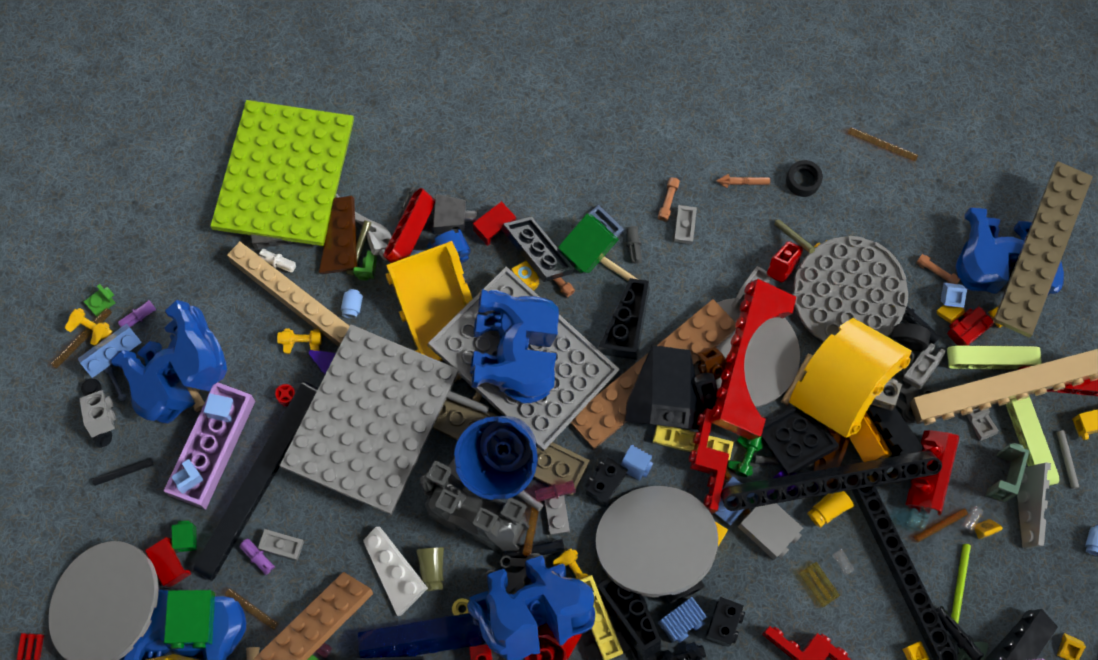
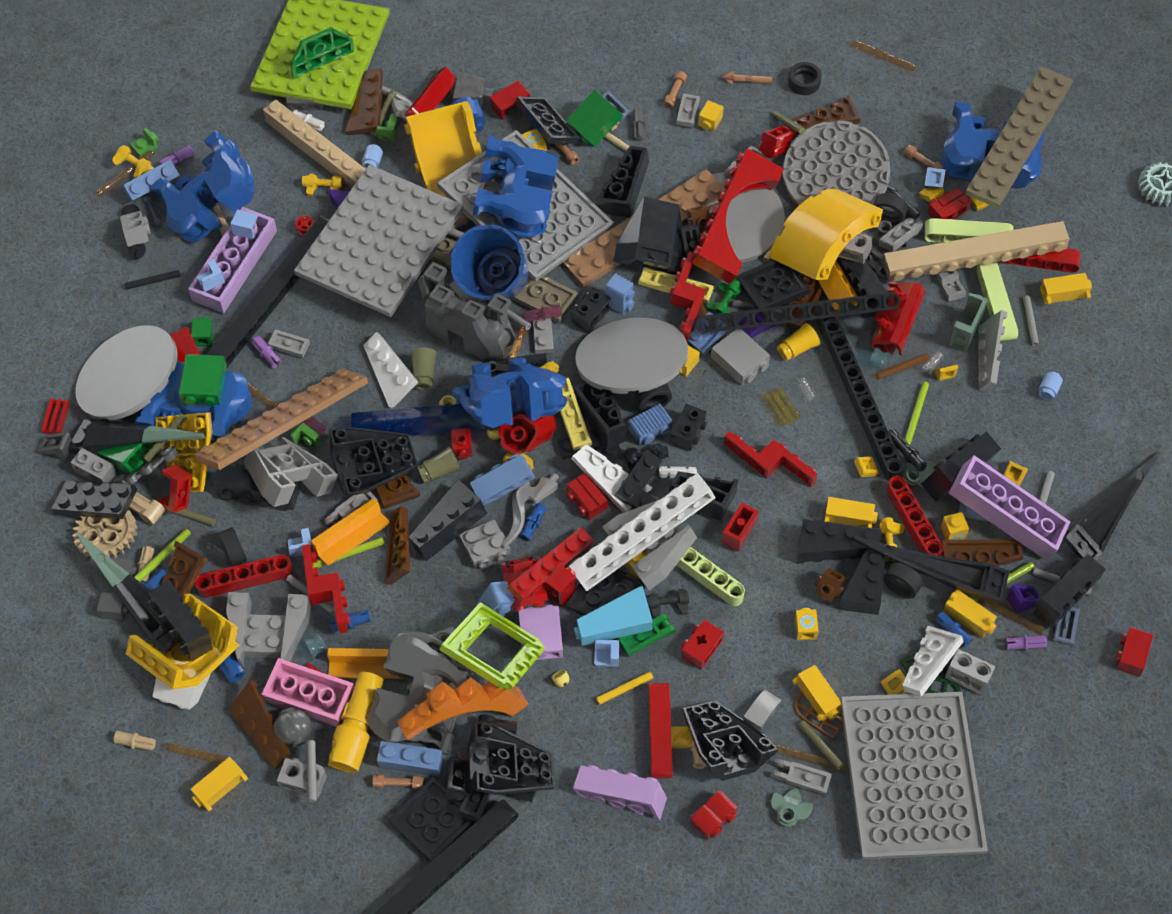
camera: 10 degrees right, 10 degrees down
(283, 181) = (320, 50): none -> green wedge
(710, 231) = (710, 116): none -> yellow brick
(839, 222) = (836, 111): none -> reddish brown wing

